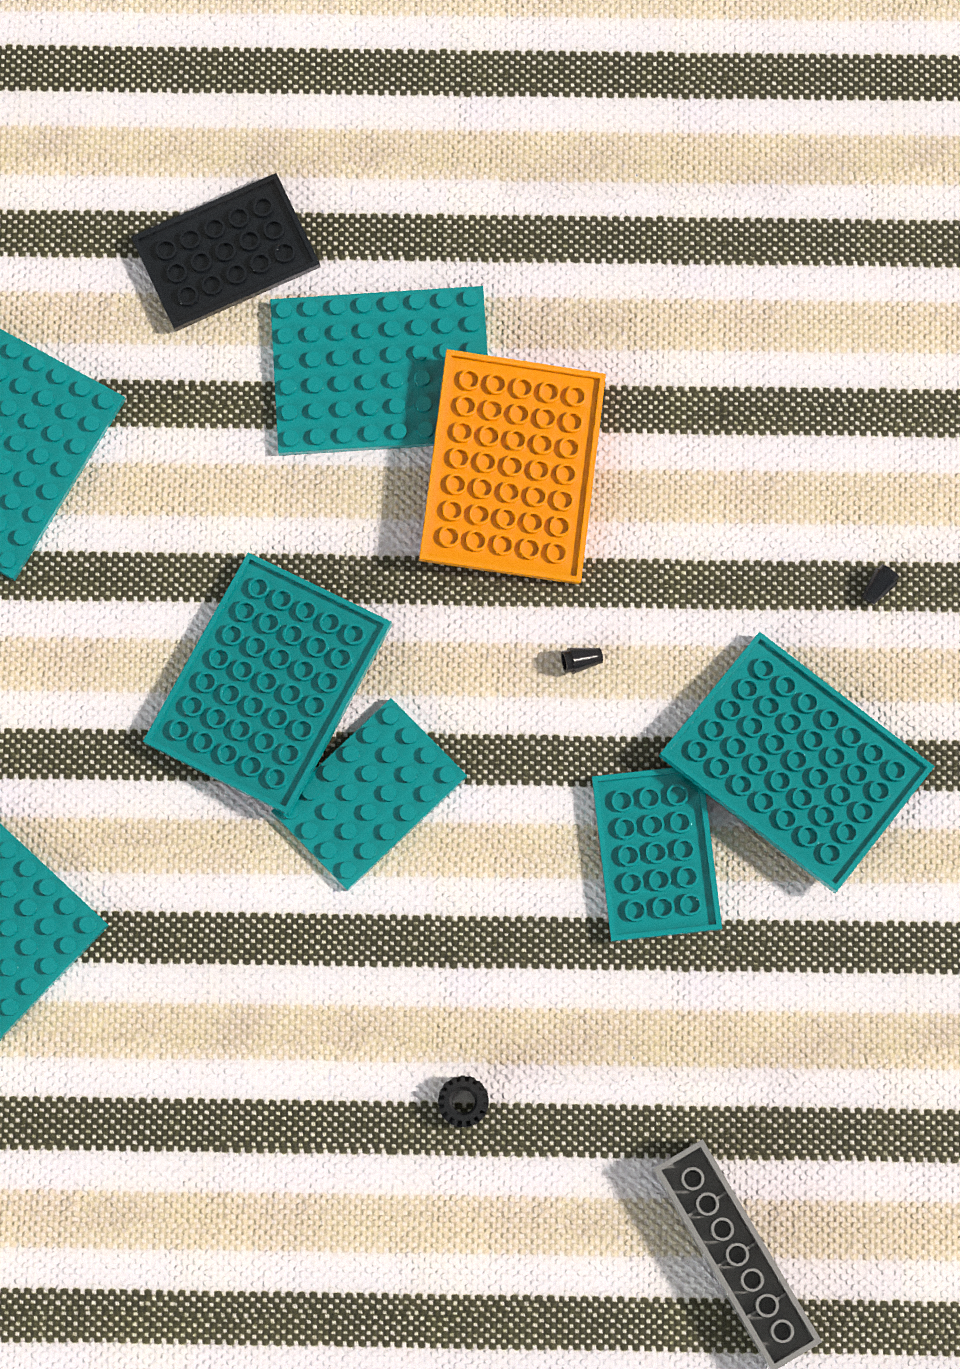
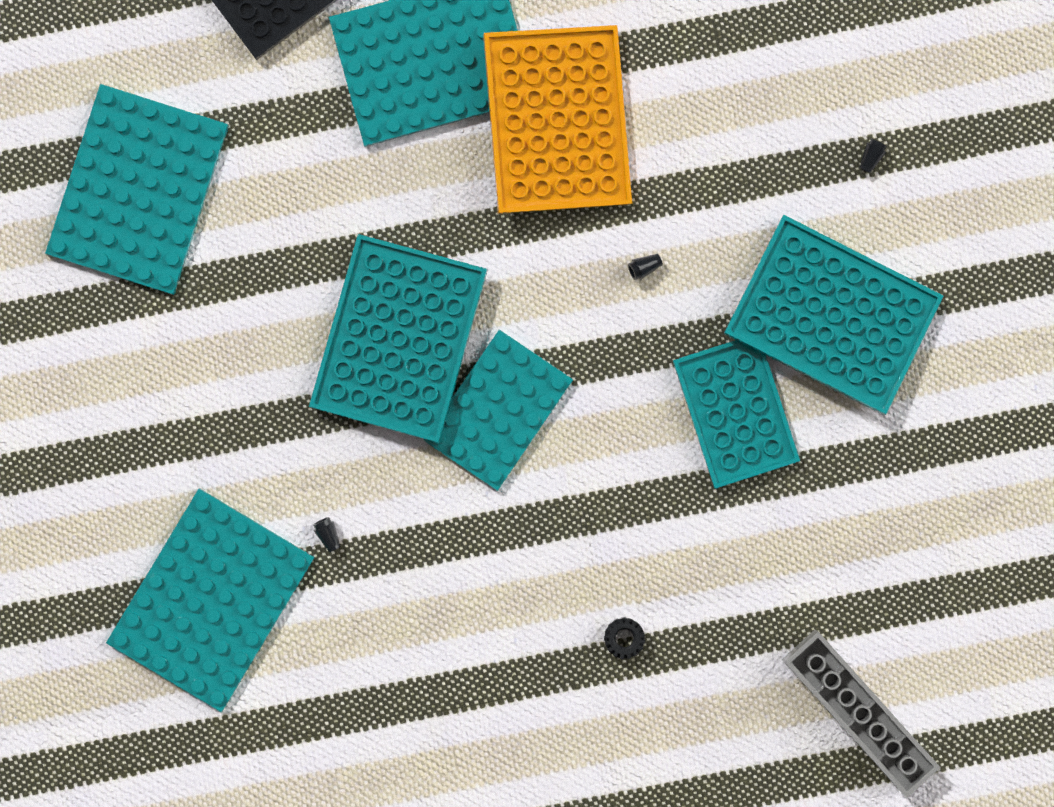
camera: 15 degrees left, 10 degrees up
(130, 899) = (327, 533): none -> black cone

